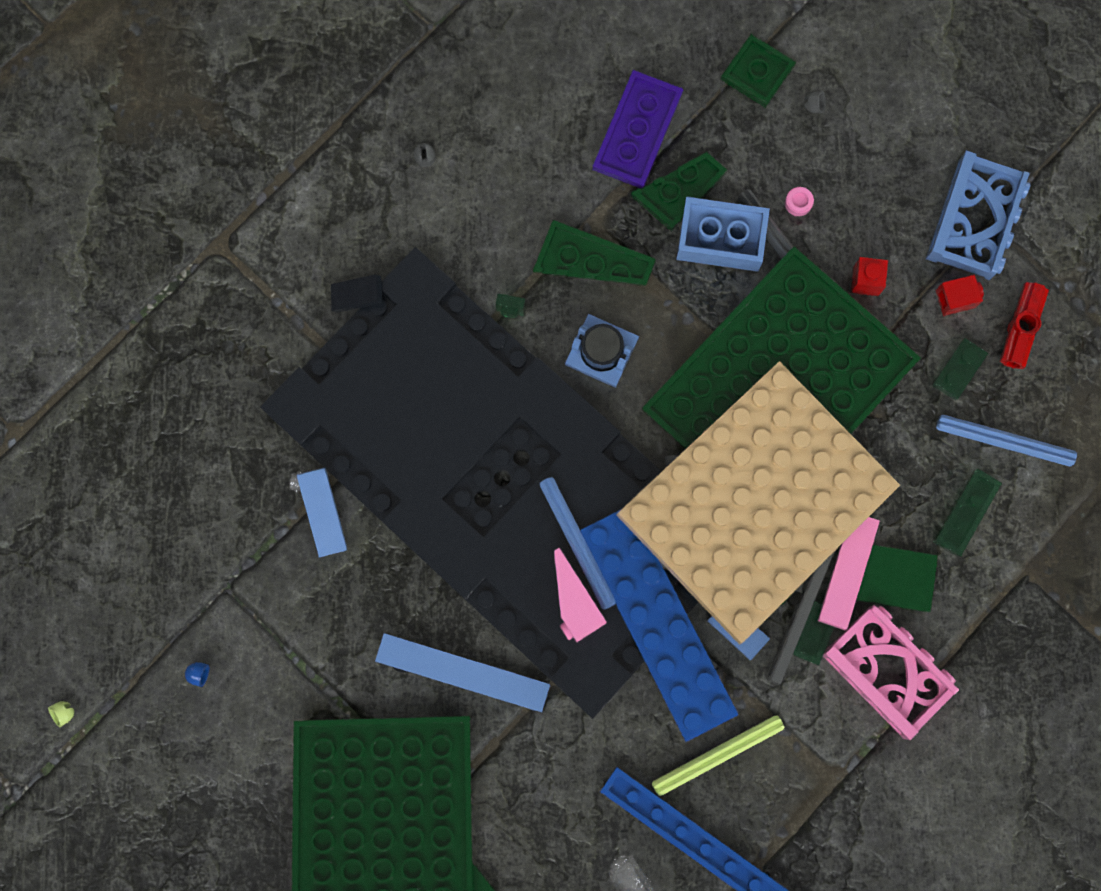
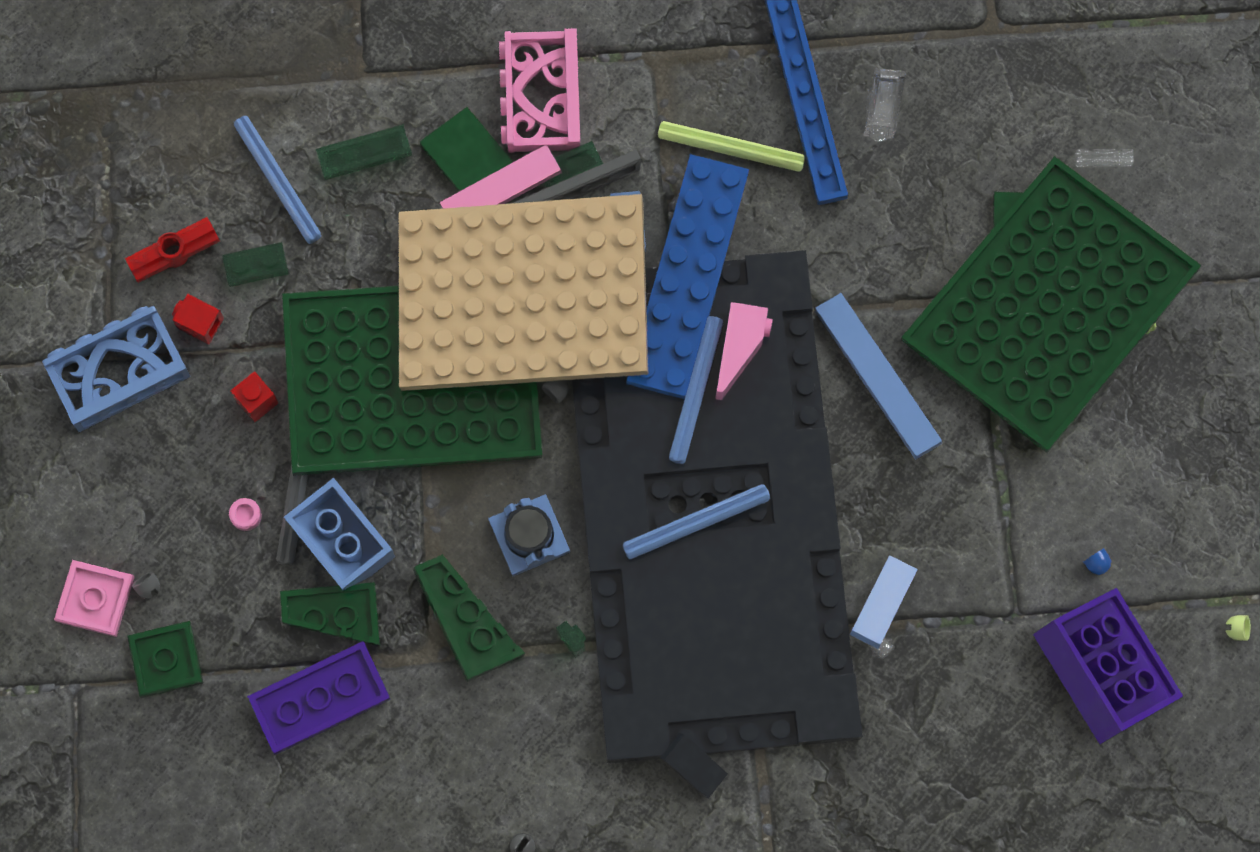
camera: 145 degrees left, 5 degrees down
(131, 604) = (1107, 665): none -> dark purple slope
(494, 451) = (696, 521): none -> medium blue axle
(840, 67) = (94, 598): none -> bright pink tile

